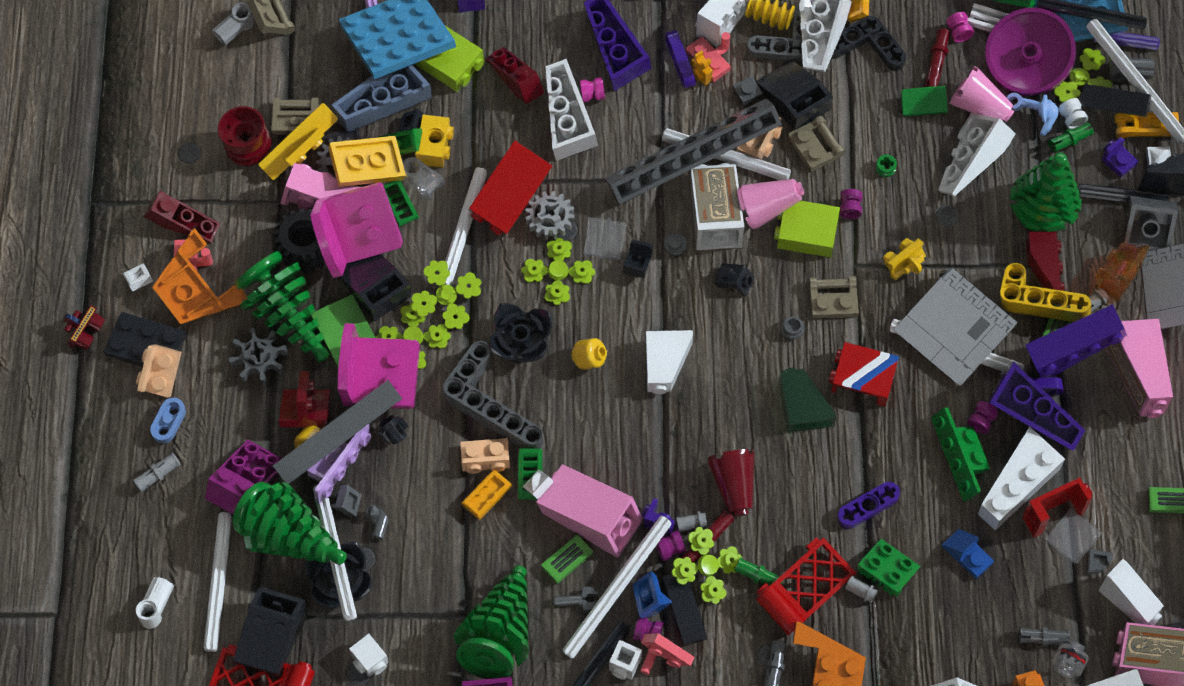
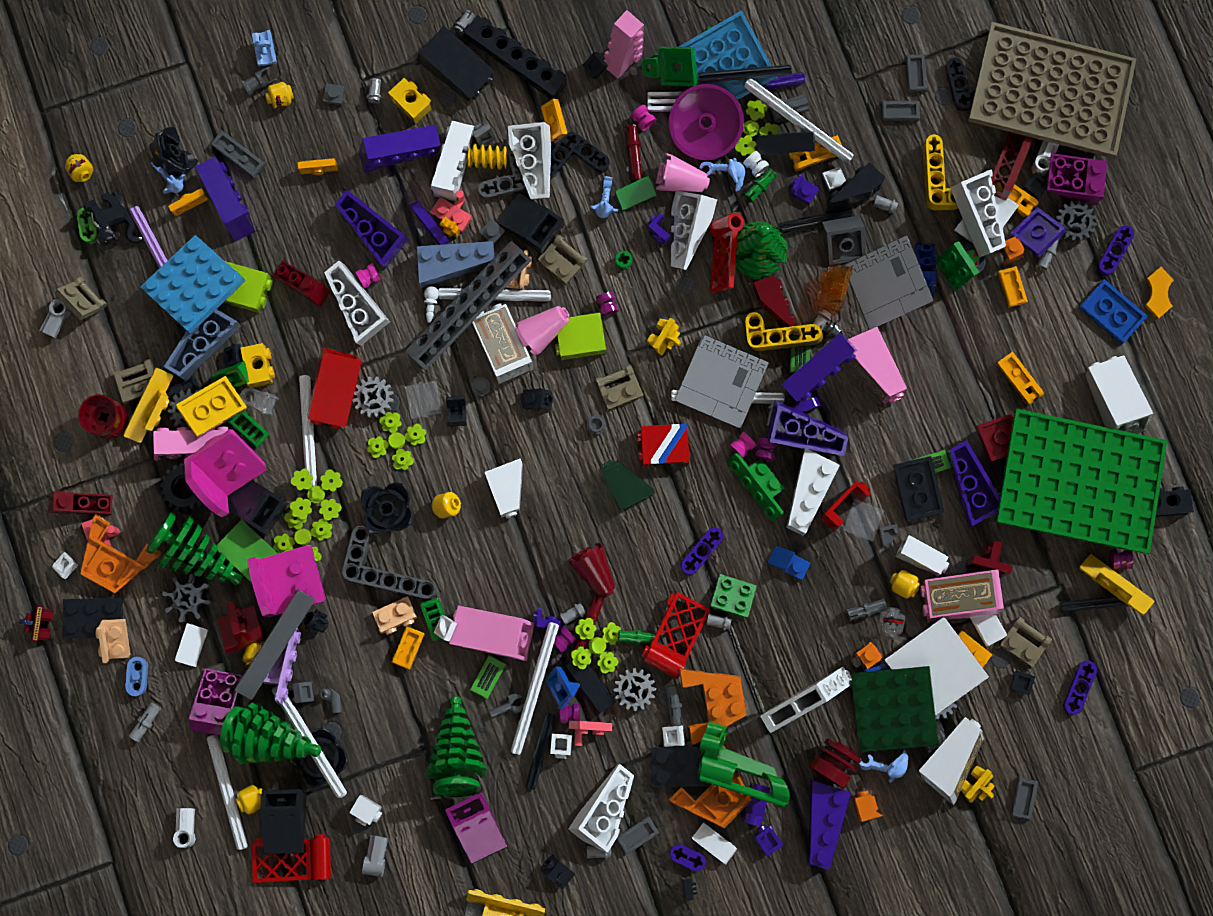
camera: 20 degrees left, 15 degrees up
(239, 596) = (249, 799): none -> yellow head
(242, 408) = (191, 645): none -> white slope
(654, 133) = (431, 295): none -> white bar
(690, 103) = (448, 261): none -> sand blue wedge
(744, 630) = (626, 693): none -> light grey gear
(881, 104) = (604, 209): none -> light blue piece
(934, 147) = (658, 234): none -> dark purple bracket
(957, 403) = (742, 445): none -> dark pink wheel
(1011, 174) = (724, 231): none -> red piece
(1100, 622) = (905, 584): none -> yellow head
(1151, 520) = (918, 488): none -> black plate

